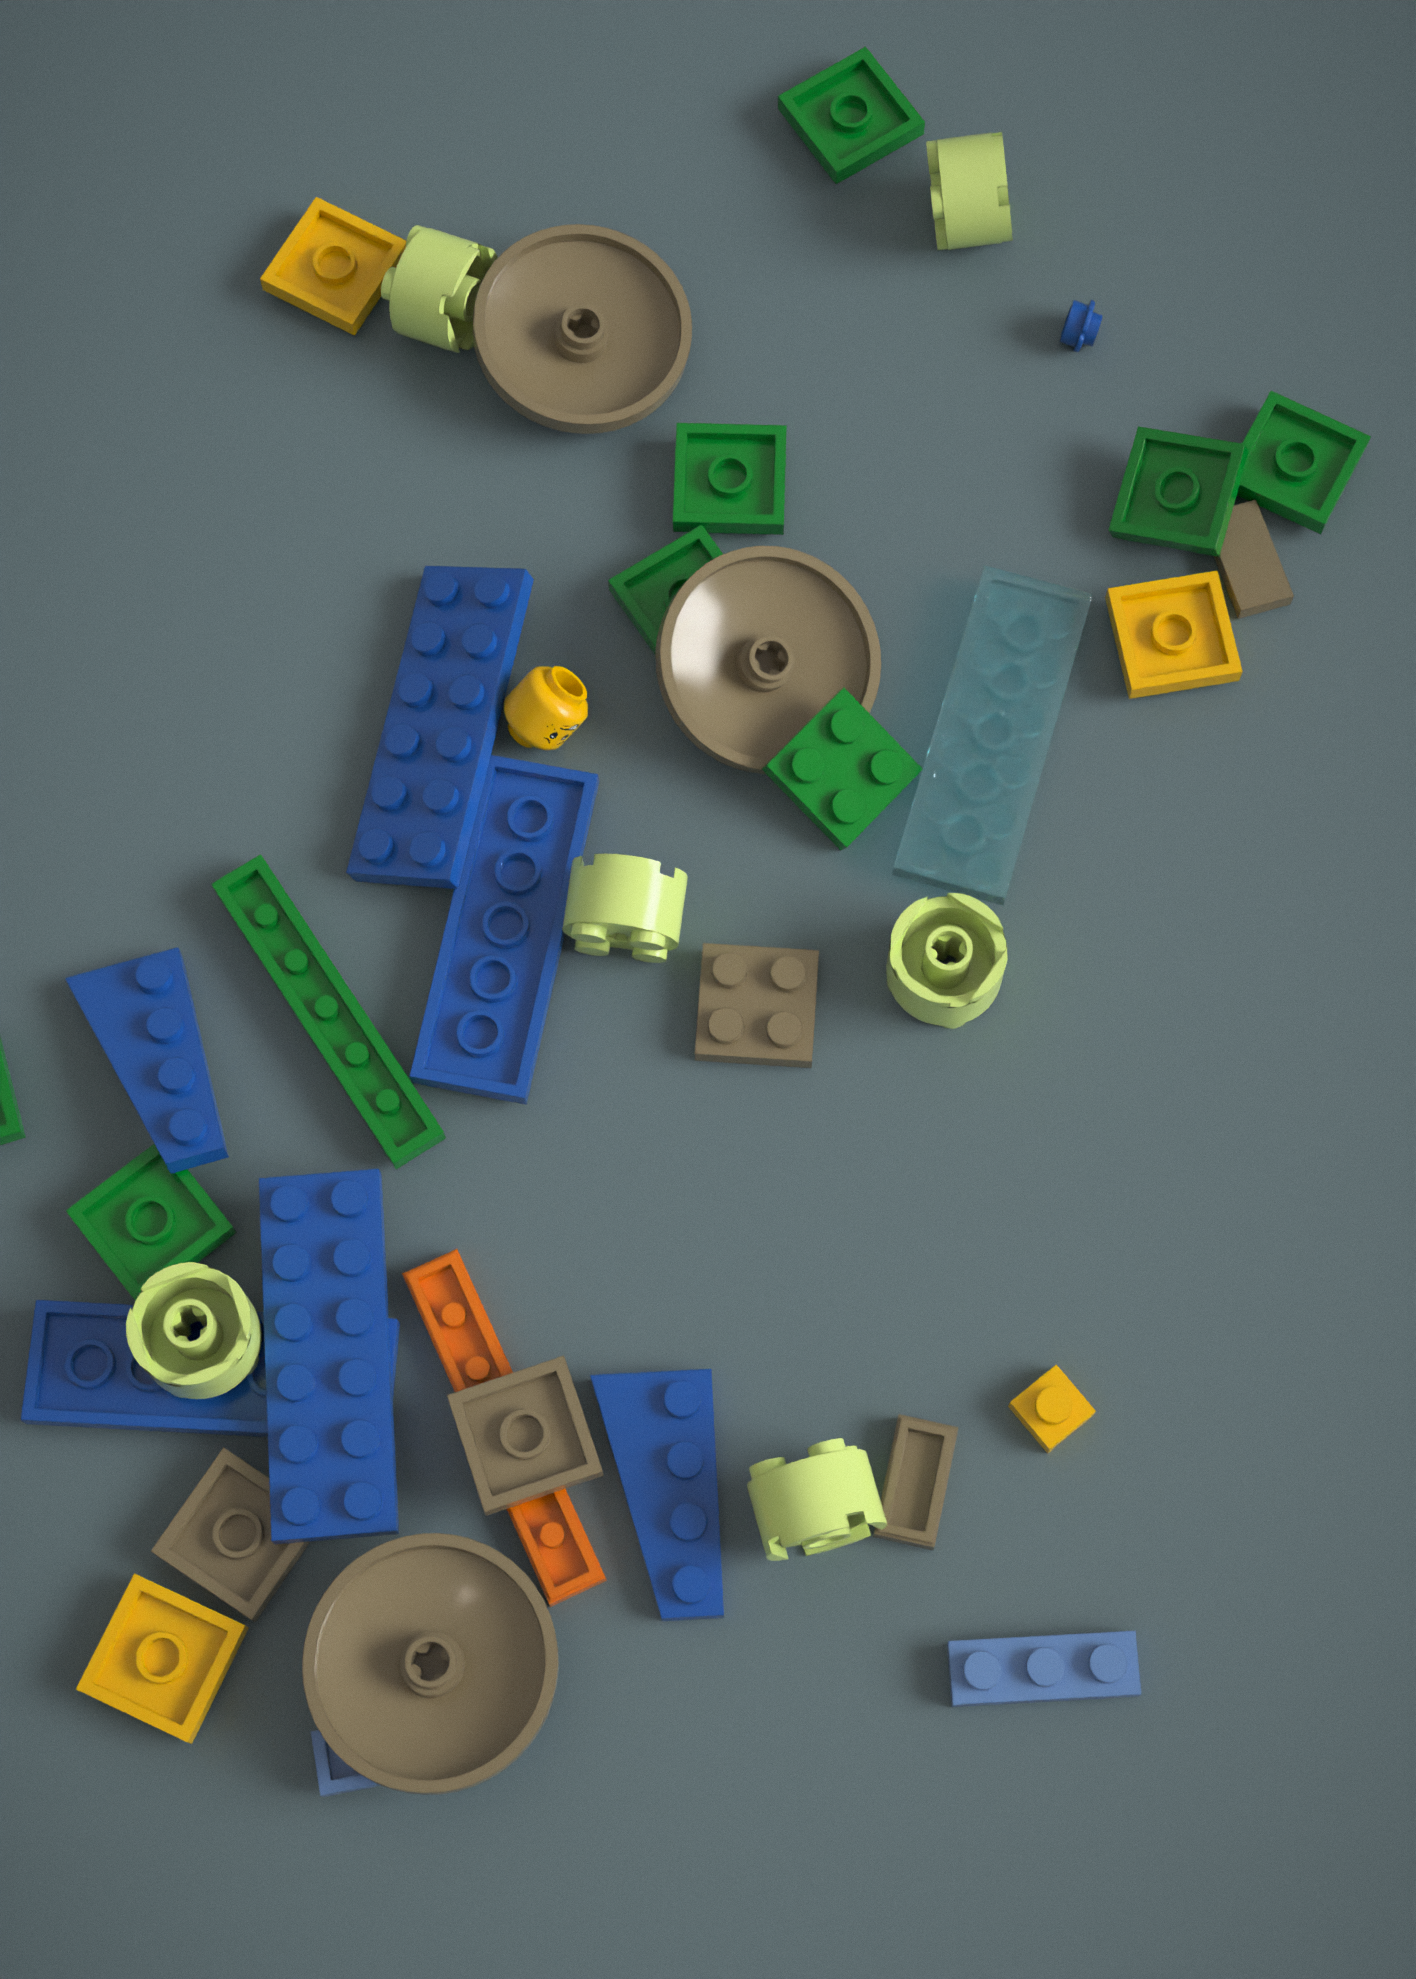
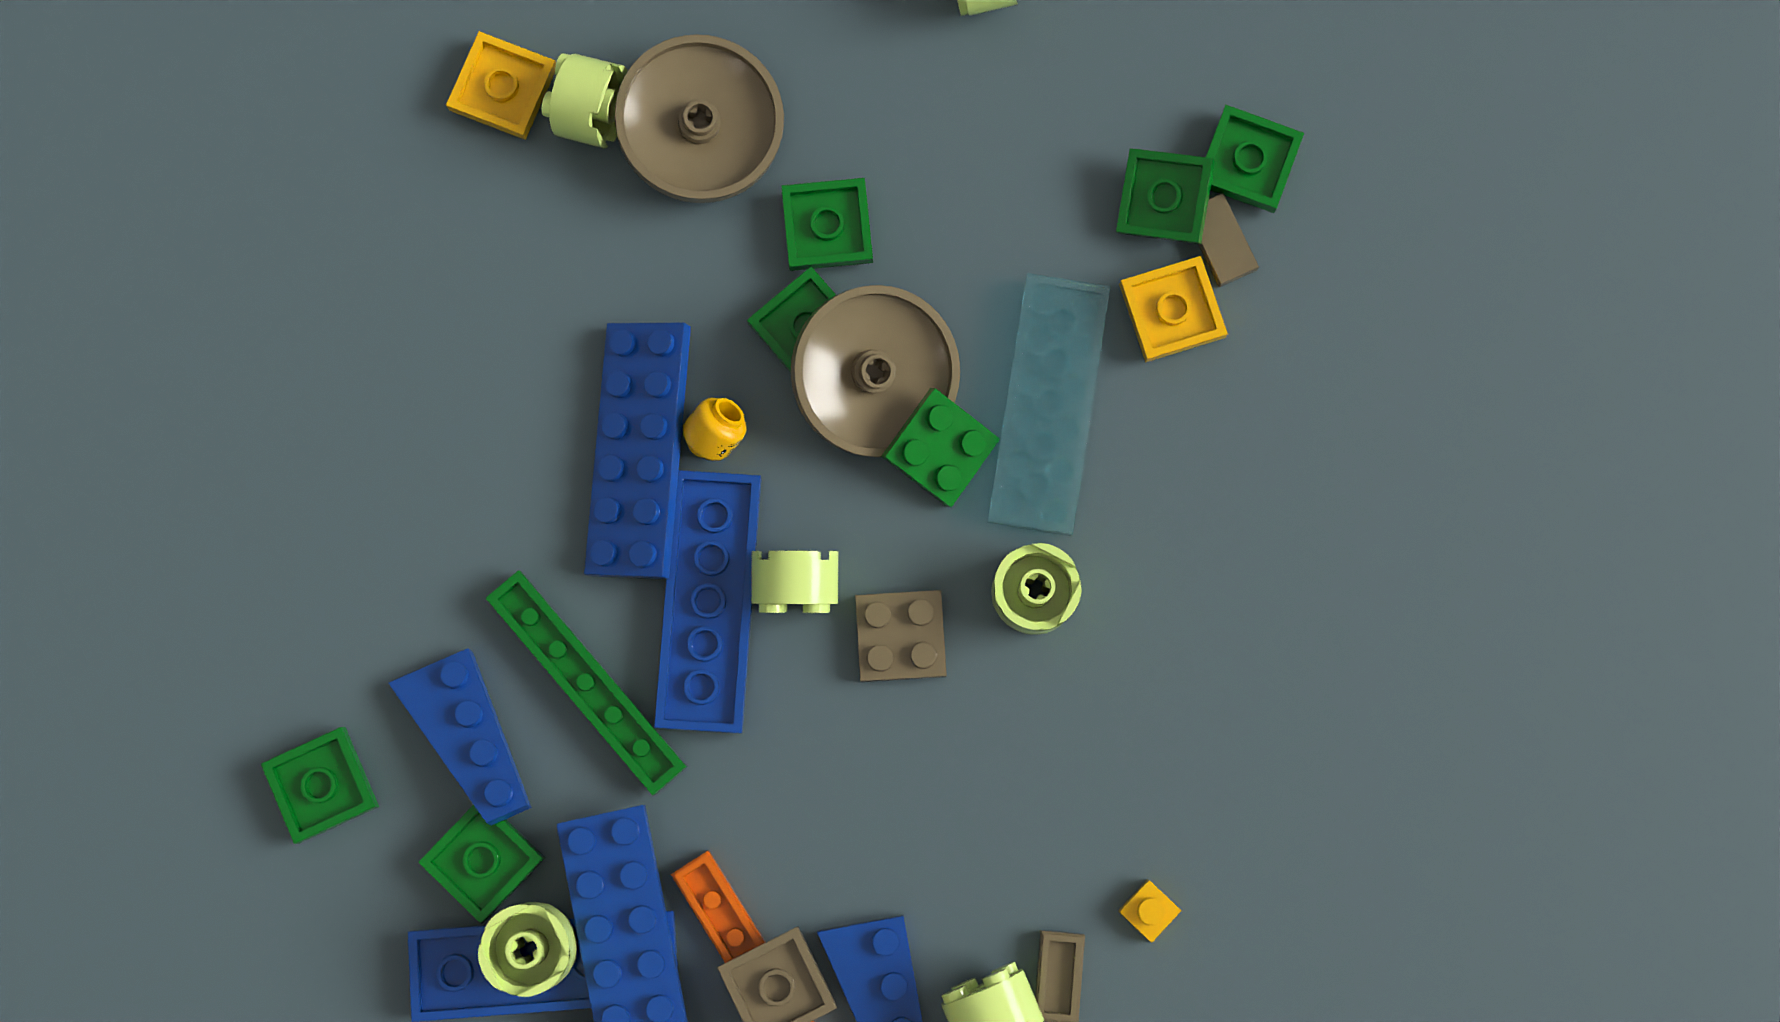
camera: 10 degrees left, 10 degrees up
(1081, 325) = (1076, 66): blue plate -> none

